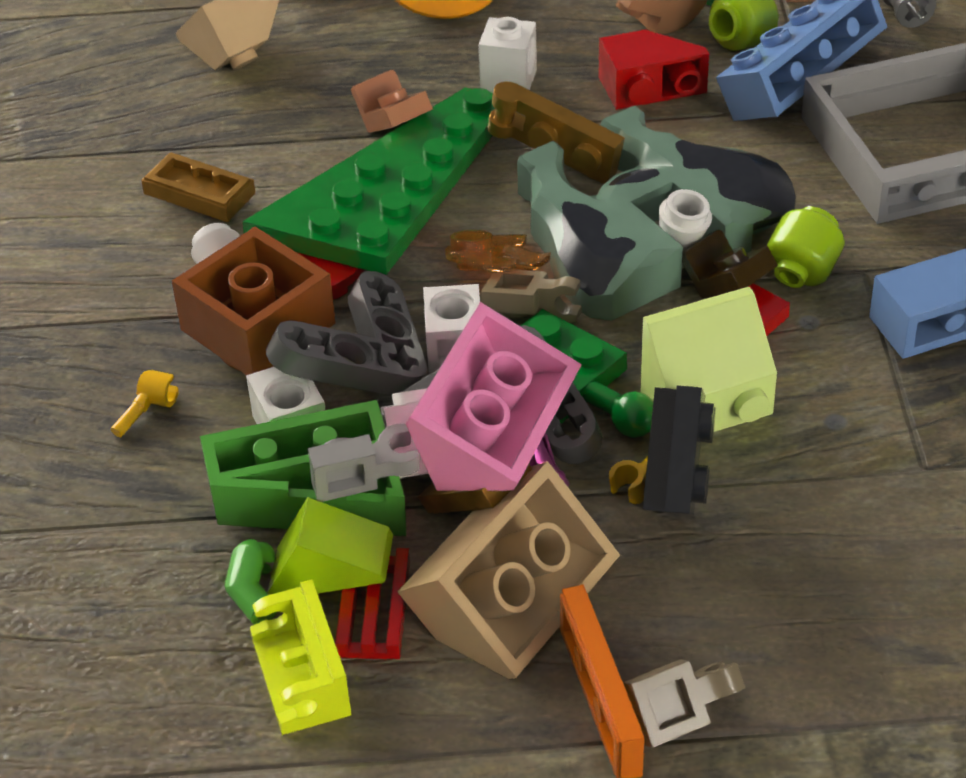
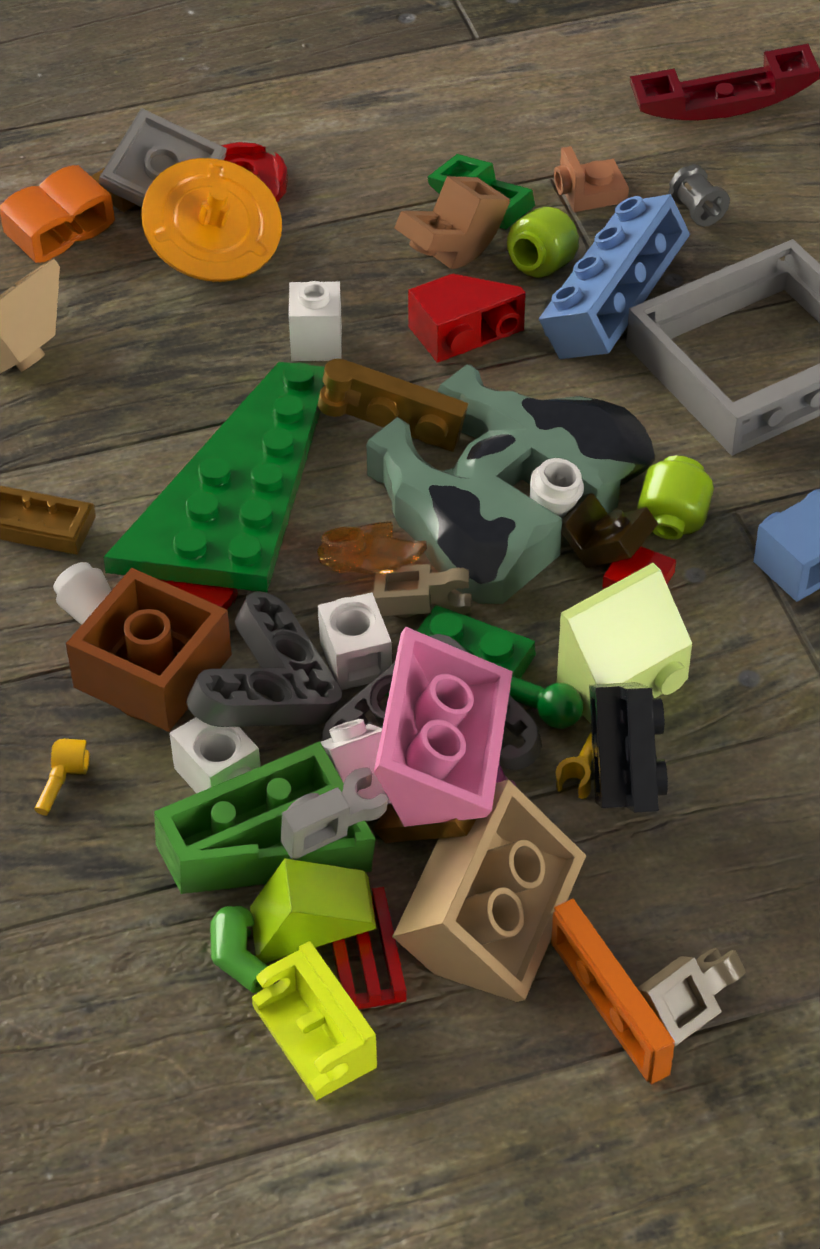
camera: 15 degrees left, 5 degrees up
(386, 103) = (204, 396): nougat bracket -> none

